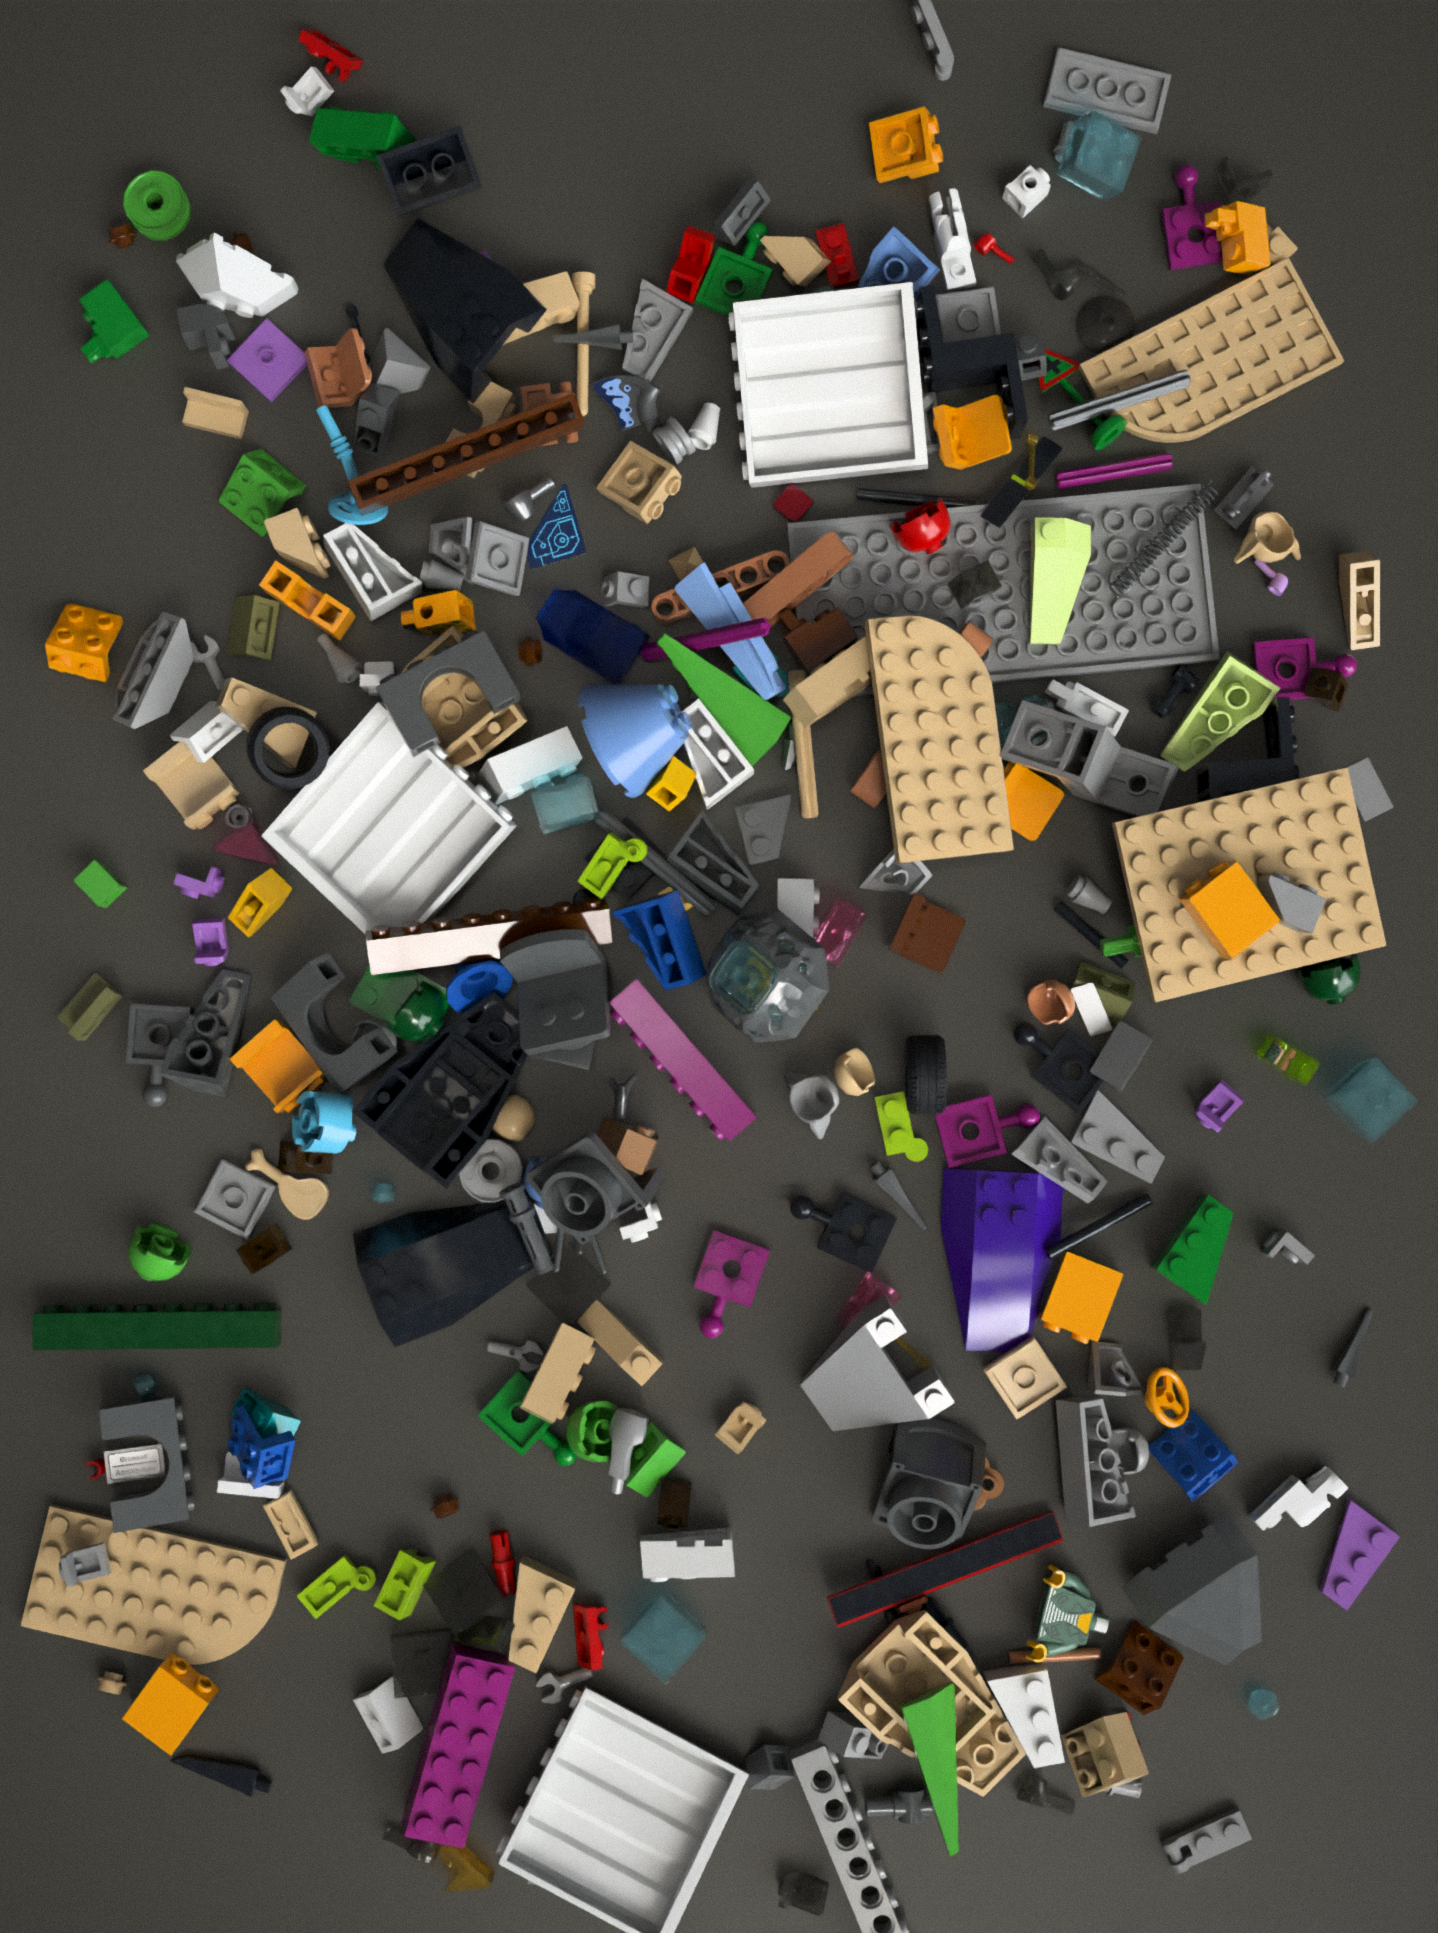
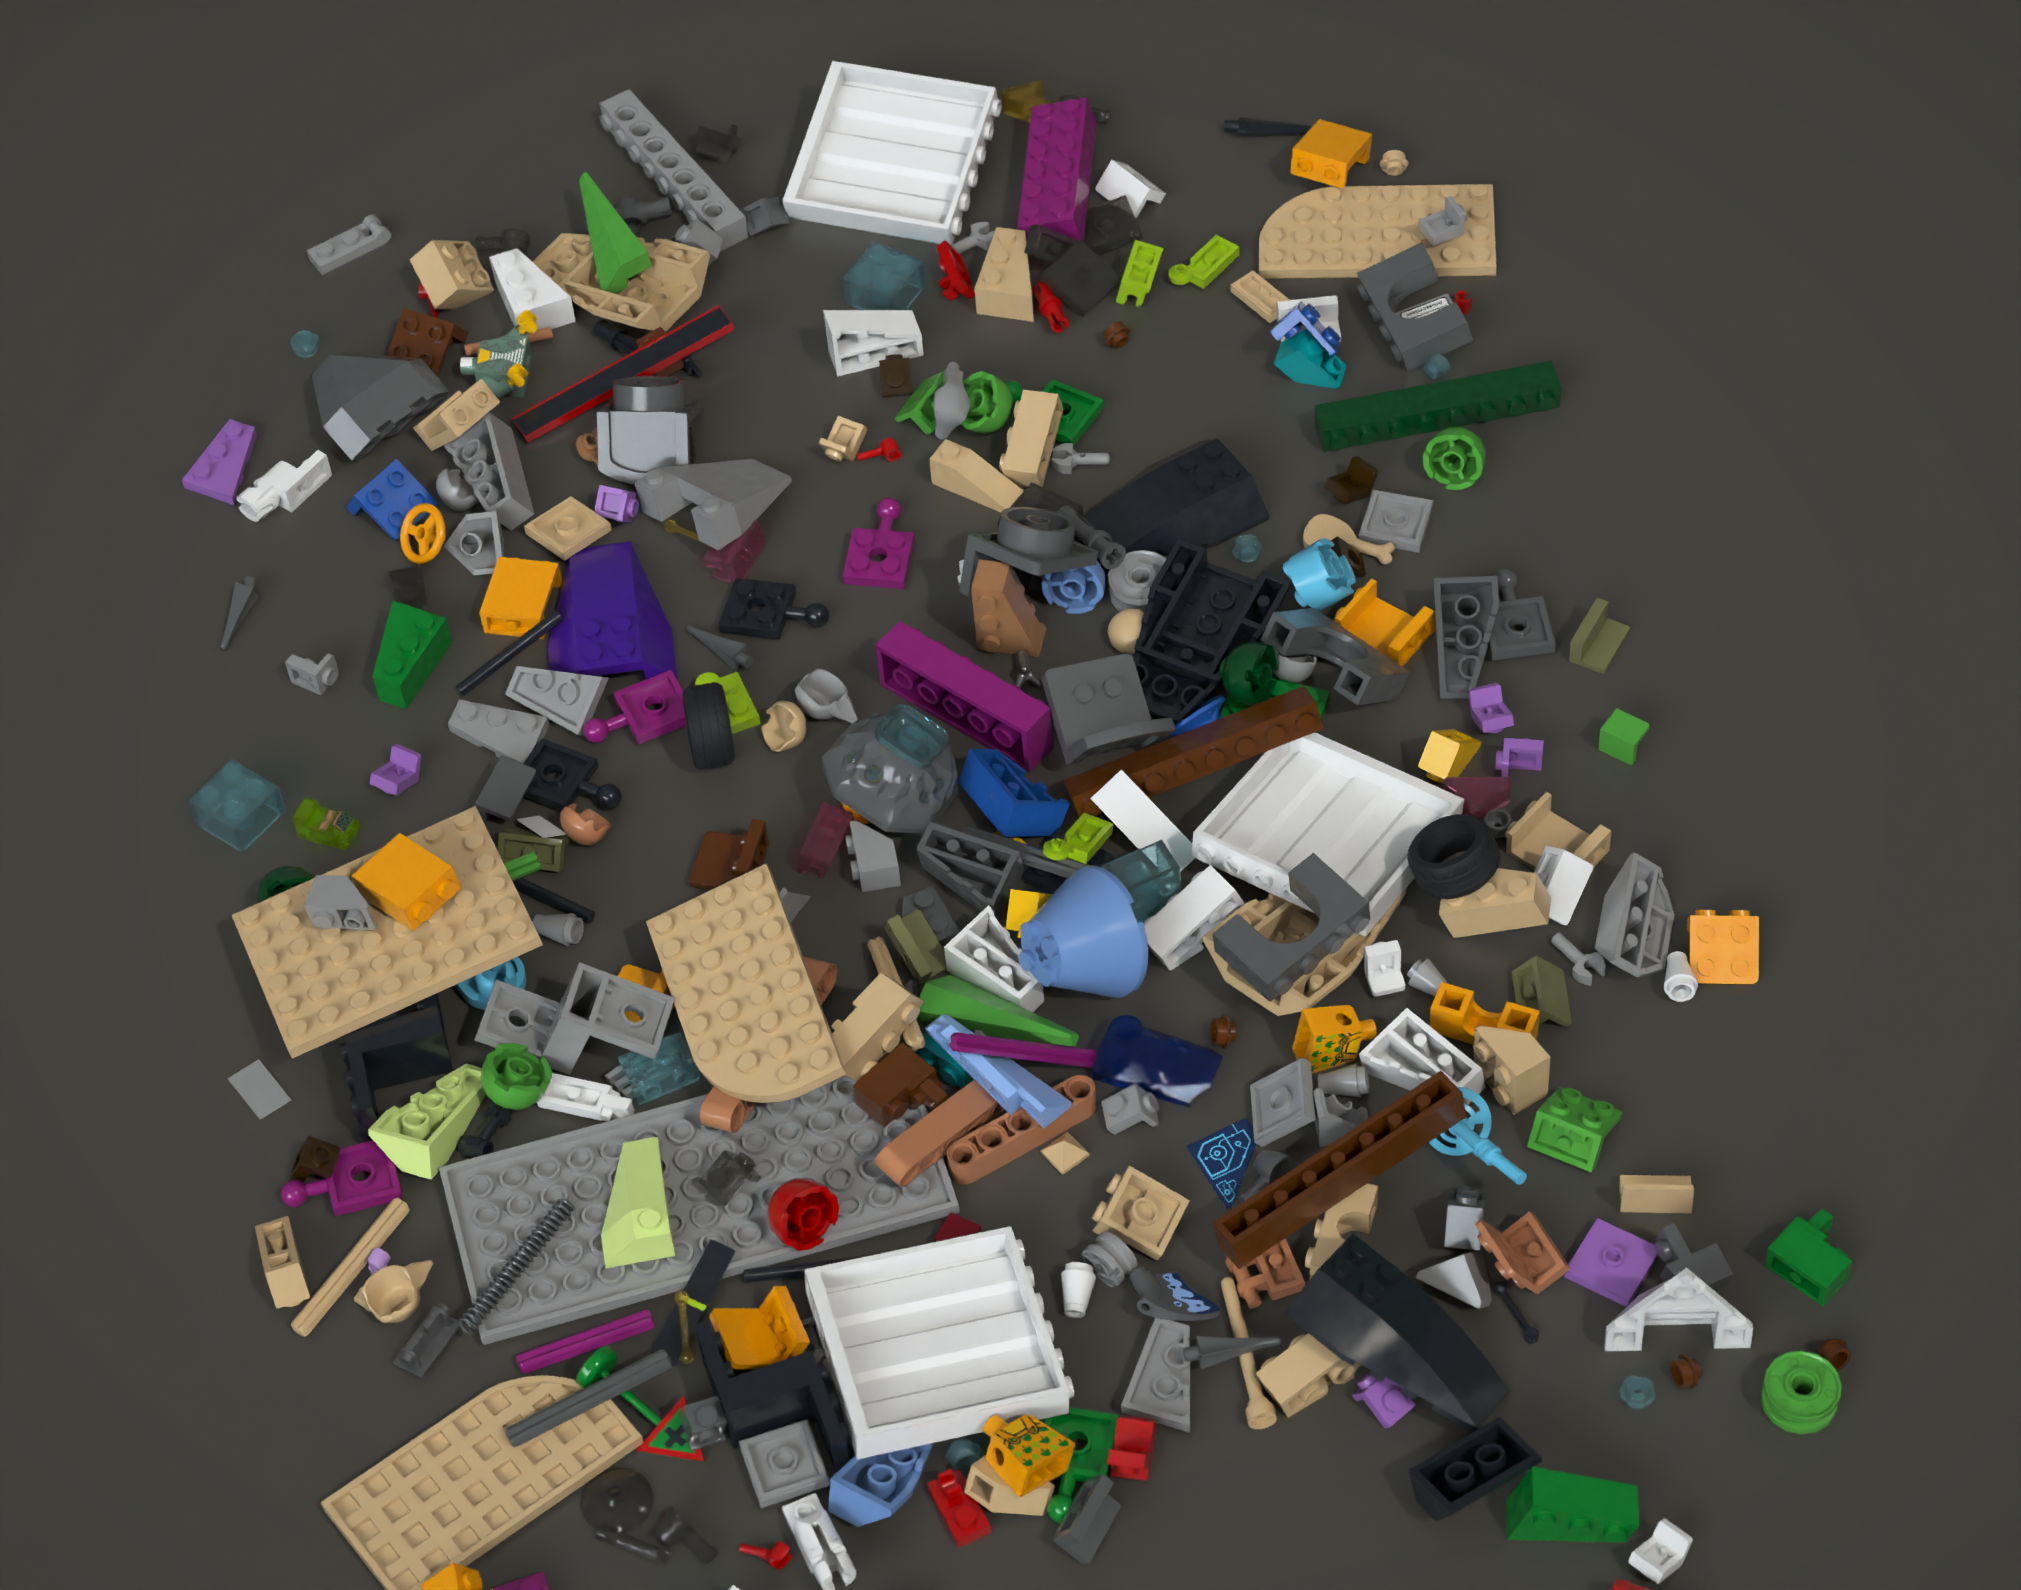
camera: 170 degrees right, 35 degrees down
(131, 617) = (1679, 978): none -> white cone
(289, 244) = (1637, 1400): none -> clear light blue plate
(549, 874) = (1141, 818): none -> white sticker
(697, 1408) = (888, 448): none -> red hand
(775, 794) = (917, 945): none -> olive panel
(778, 260) = (1026, 1452): none -> light orange torso
(973, 1394) = (616, 503): none -> medium lavender bracket
(1120, 1539) = (456, 415): none -> tan panel
(1137, 730) = (515, 1076): none -> bright green cylinder
(1301, 585) = (349, 1267): none -> tan axle

